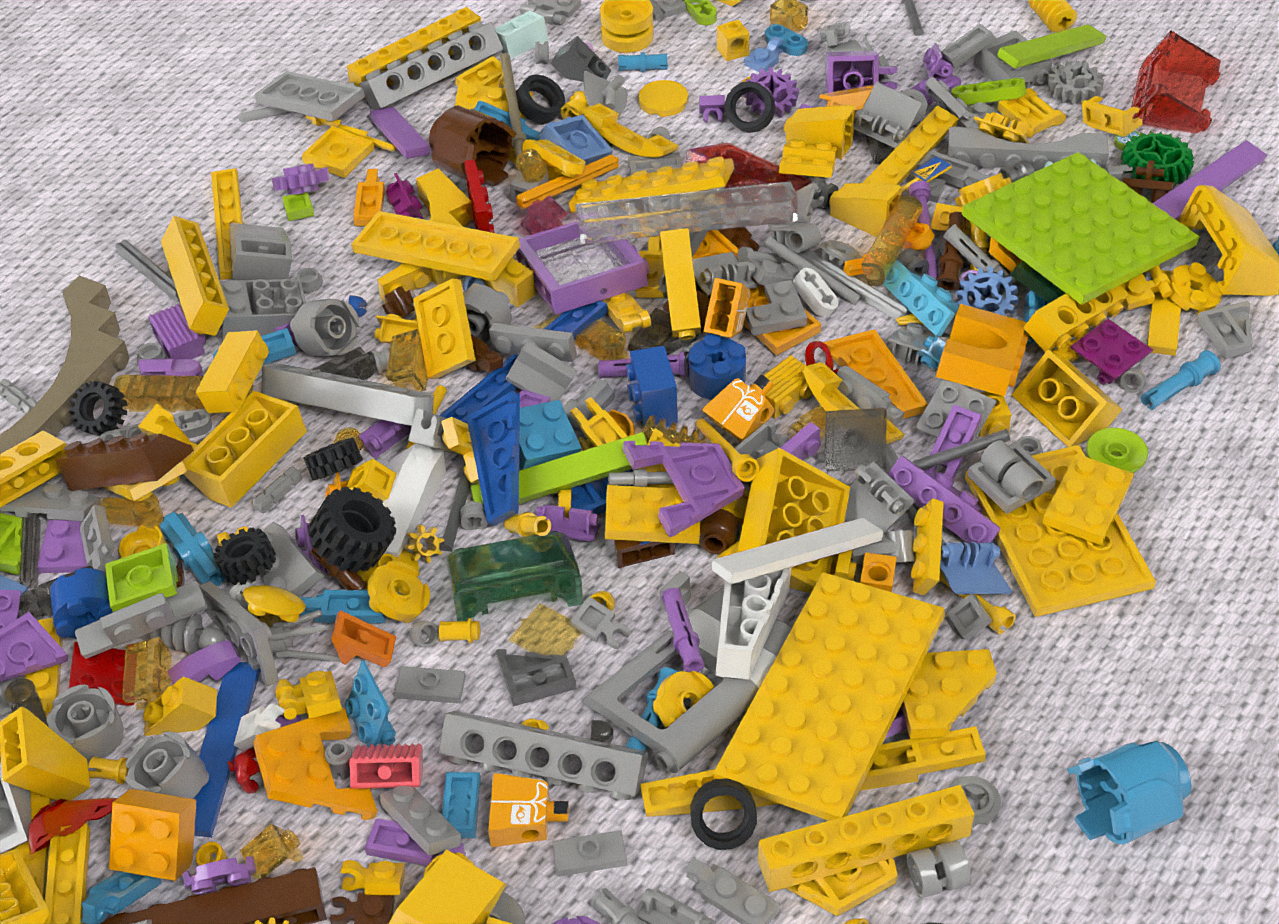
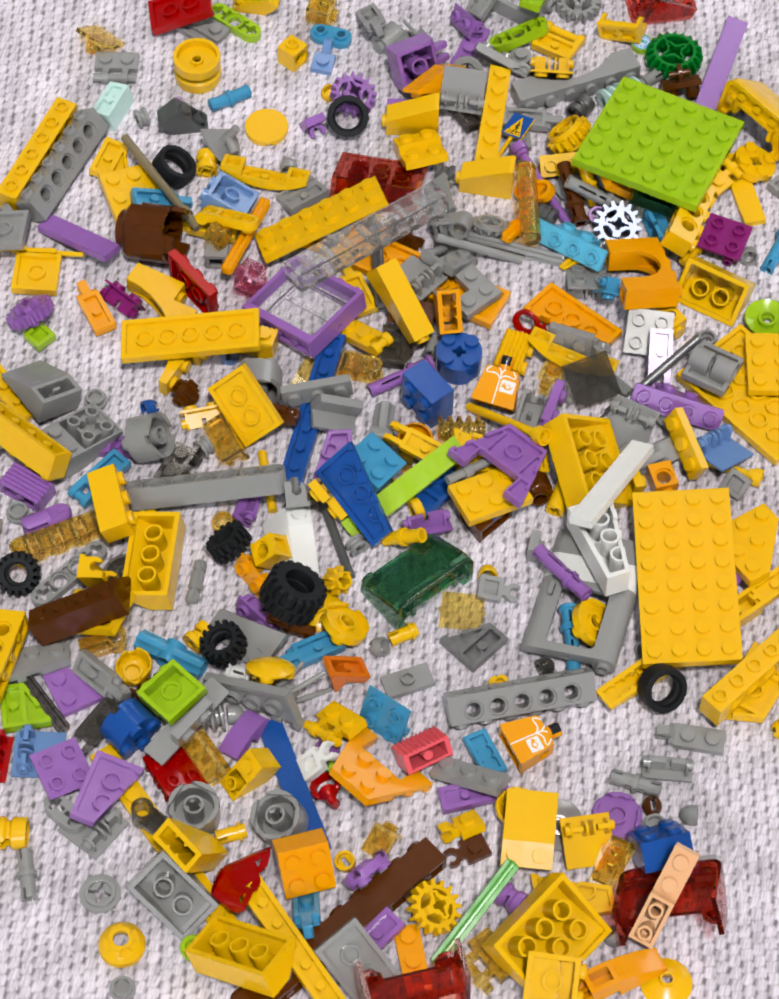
camera: 30 degrees left, 10 degrees up
(338, 757) = (387, 757): light grey pin -> none
(589, 853) = (587, 750): light grey plate -> none
(815, 292) = (491, 266): white beam -> none

